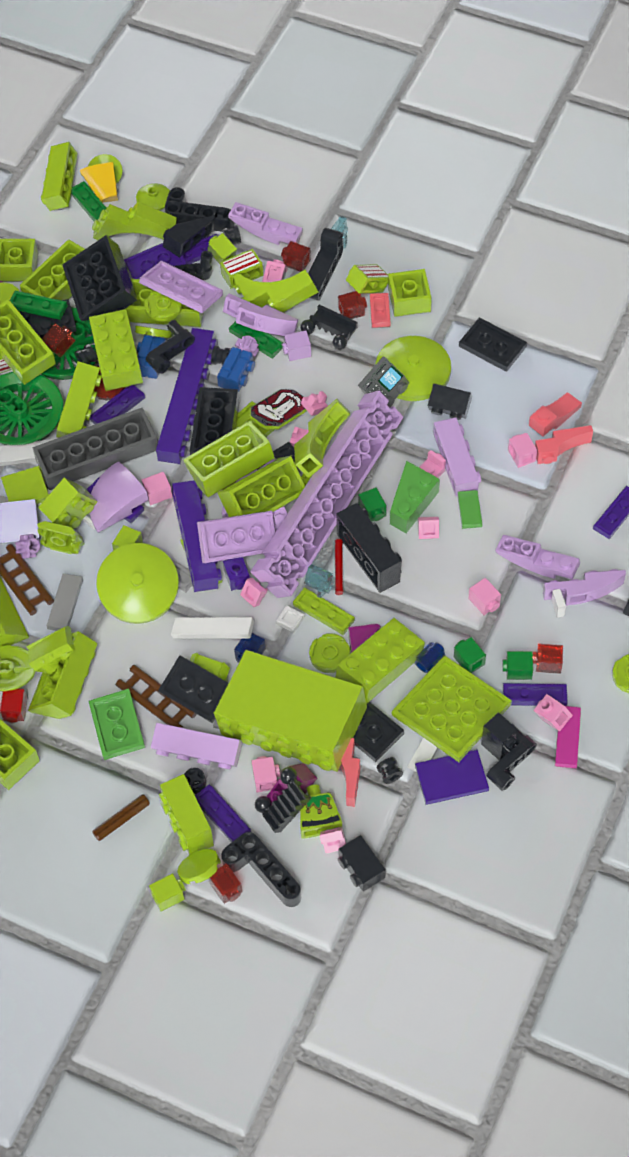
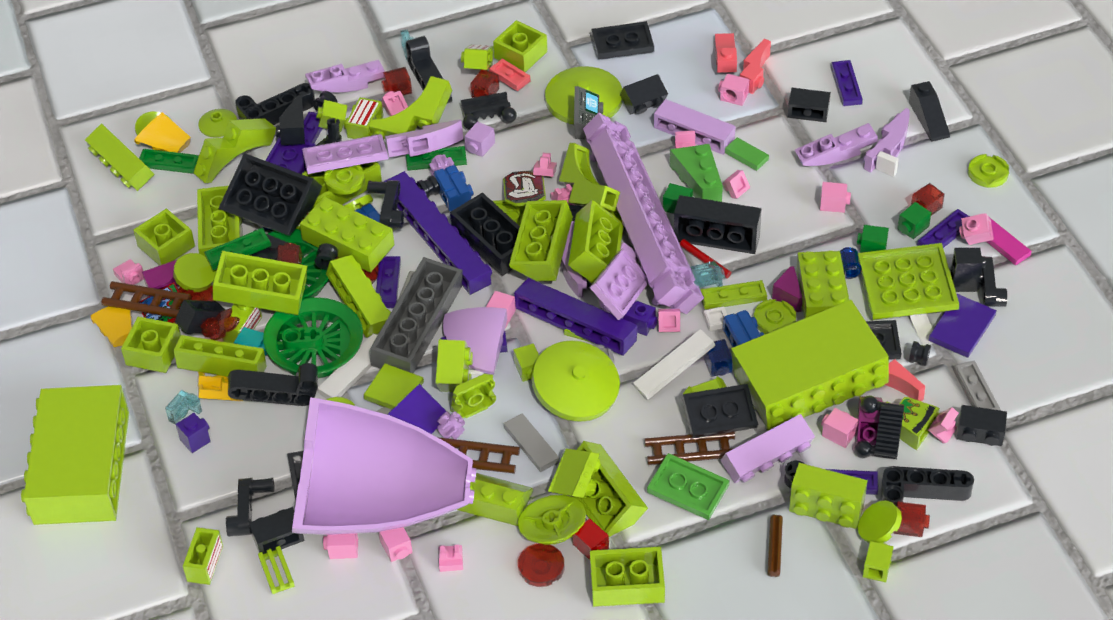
camera: 45 degrees left, 10 degrees down
(290, 644) = (740, 328): none -> blue brick
(398, 834) = (975, 385): none -> light grey tile
(561, 507) = (808, 104): none -> black brick

